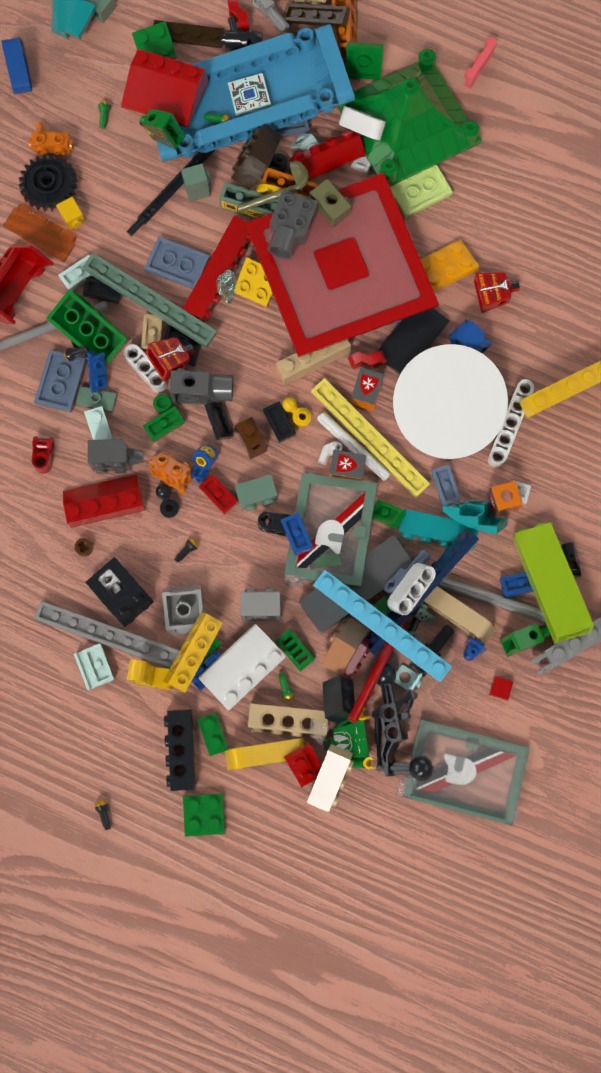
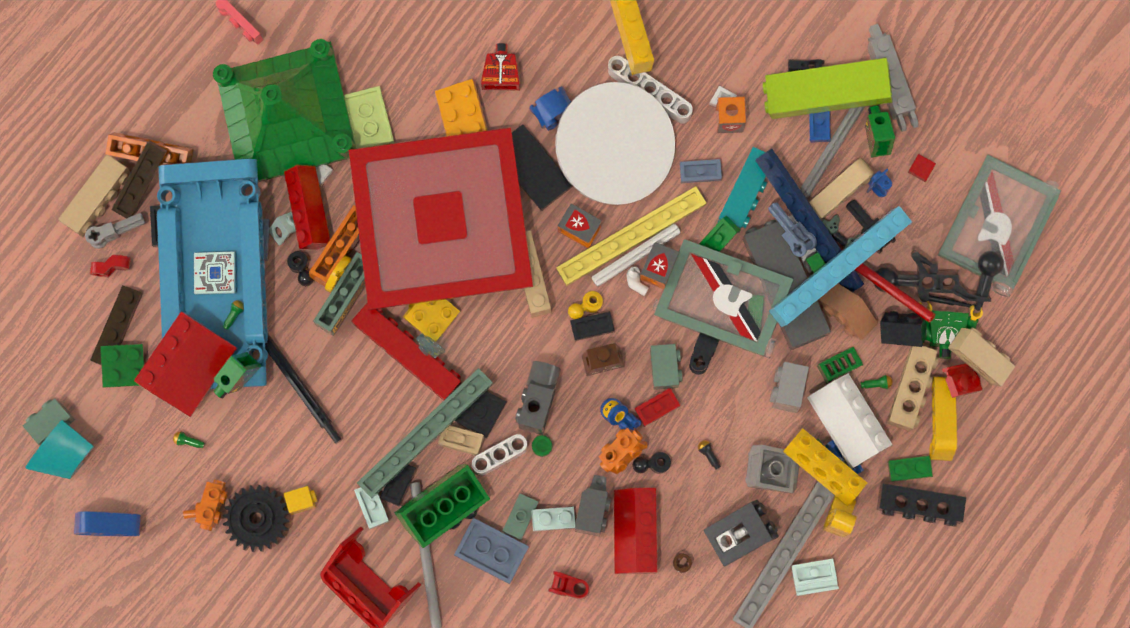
camera: 75 degrees left, 0 degrees up
(42, 236) = (308, 546): clear orange windscreen -> none
(71, 354) = (467, 530): black piece -> none
(97, 371) = (493, 507): blue hinge -> none
(101, 807) = (963, 599): black piece -> none
(164, 424) = (566, 448): green plate -> none
(168, 356) = (497, 424): red torso -> none
(176, 262) = (387, 396): sand blue plate -> none
(196, 182) = (302, 353): sand green brick -> none
(203, 815) = (990, 495): green plate -> none
(219, 420) = (576, 389): black plate -> none
(237, 38) = (141, 271): black piece -> none
(255, 156) = (294, 280): dark brown brick -> none
(291, 223) = (386, 258): dark grey brick -> none
(296, 534) = (723, 332): blue plate -> none
(300, 176) = (334, 235): olive piece -> none
(318, 730) = (931, 356): clear tile -> none
(332, 212) = (366, 222): olive brick -> none
(360, 359) = (549, 215): red piece -> none
(362, 123) = (283, 159): white beam -> none
(362, 651) = (872, 305): plate -> none
(364, 60) = (207, 140): green plate -> none
(407, 596) = (809, 228): white beam -> none
(414, 682) = (897, 250): light aqua bracket -> none
(476, 516) = (741, 150): teal slope -> none

